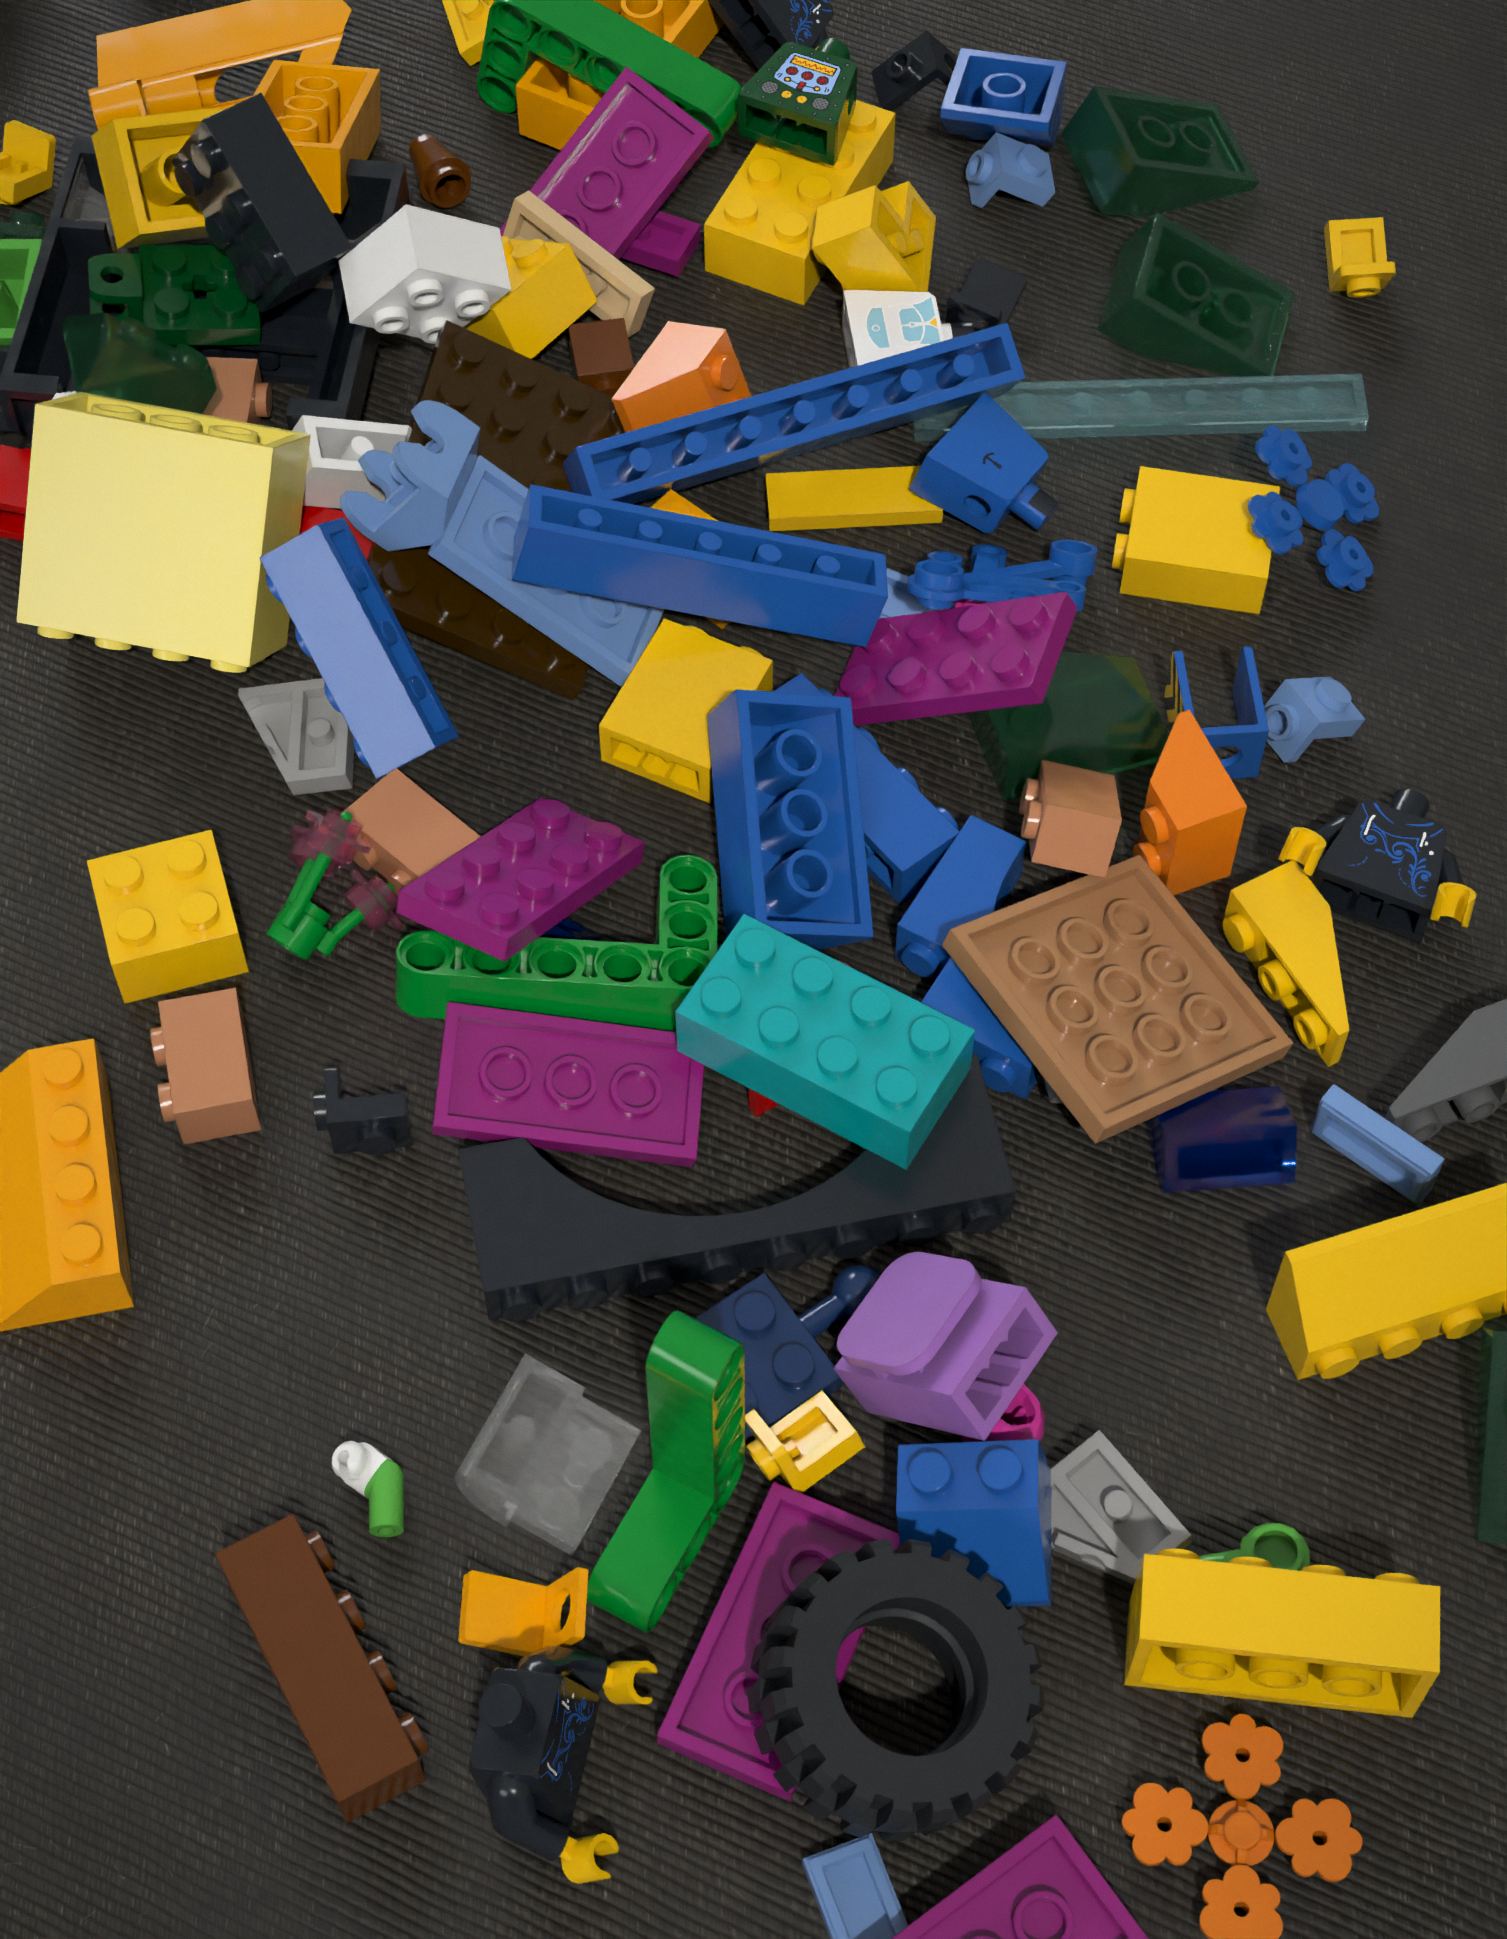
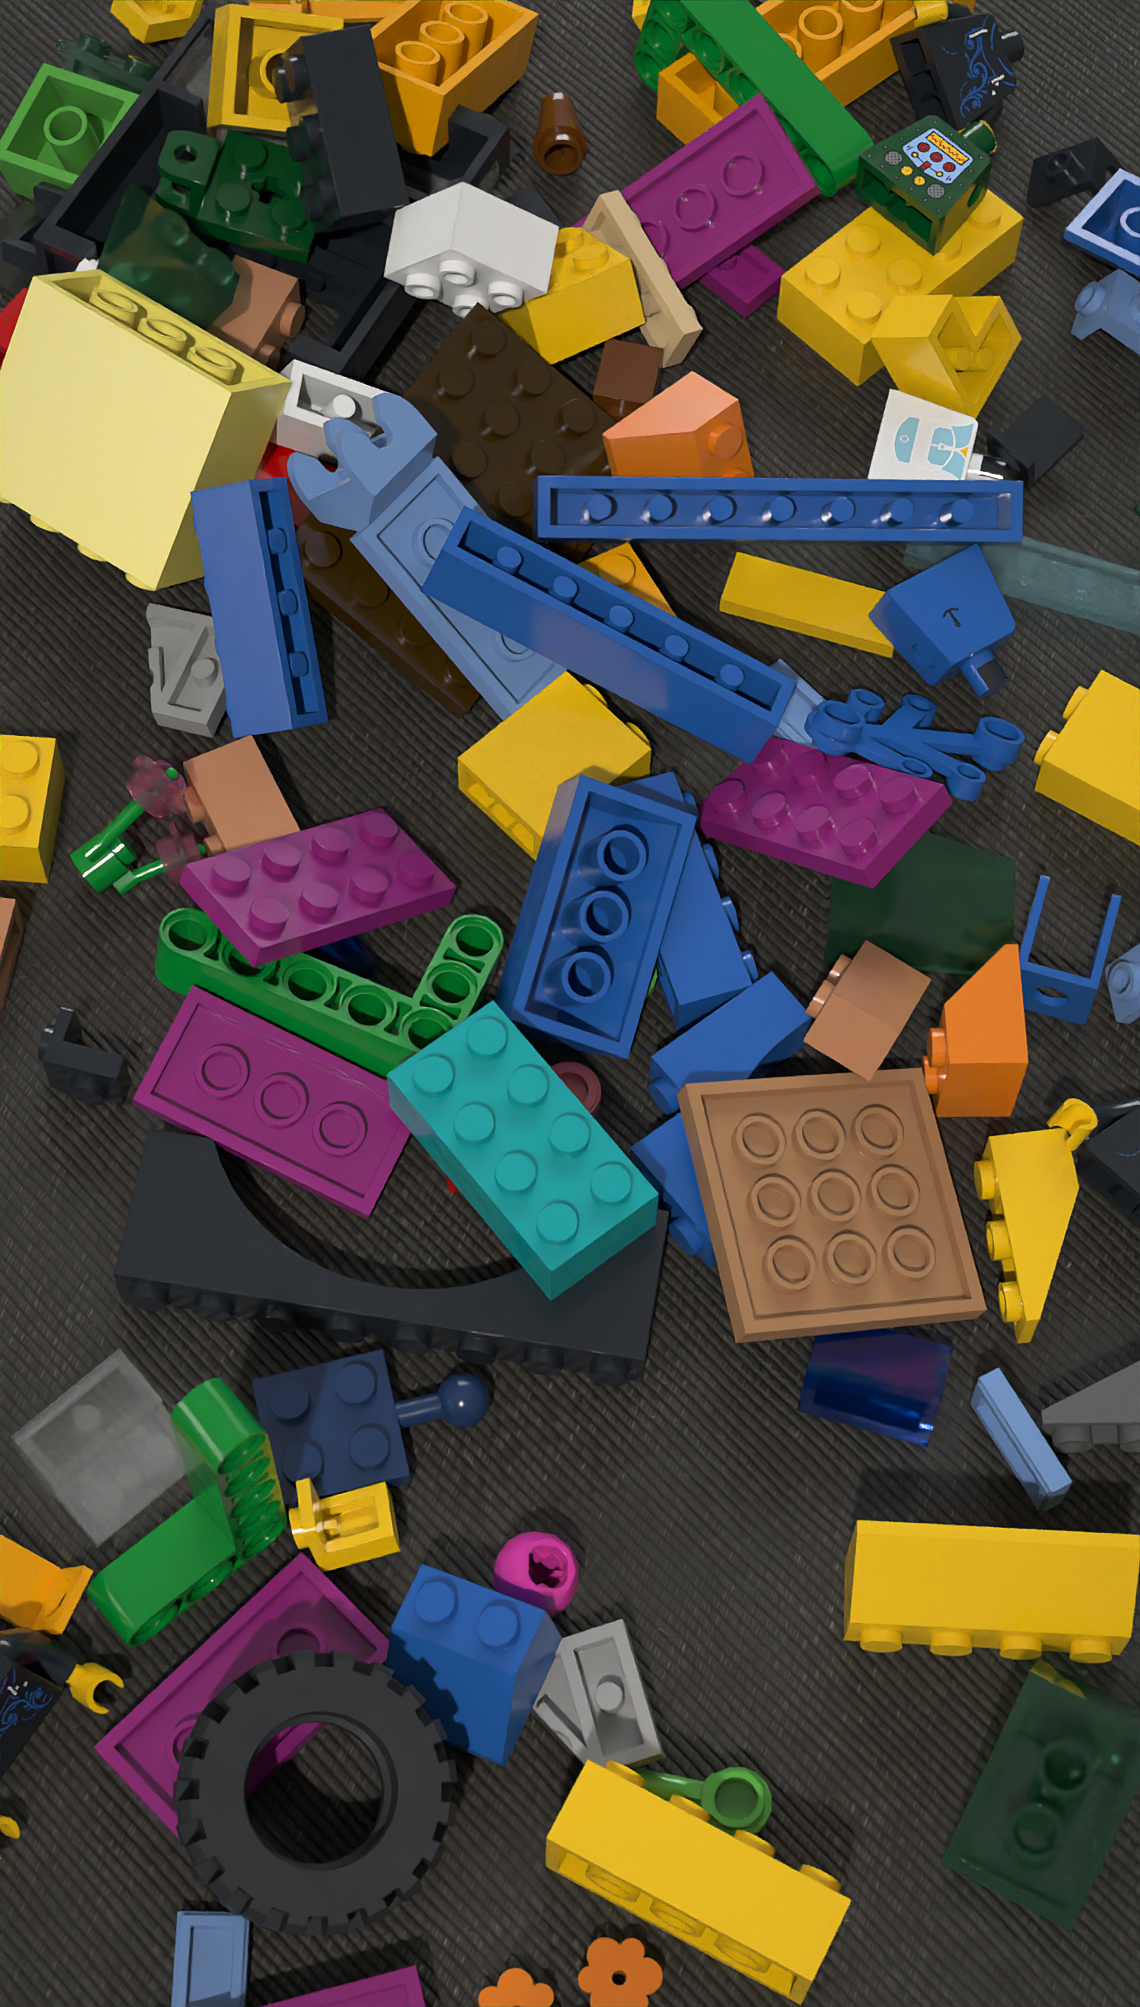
camera: 20 degrees right, 5 degrees up
(941, 1345) = (504, 1484): medium lavender brick -> none

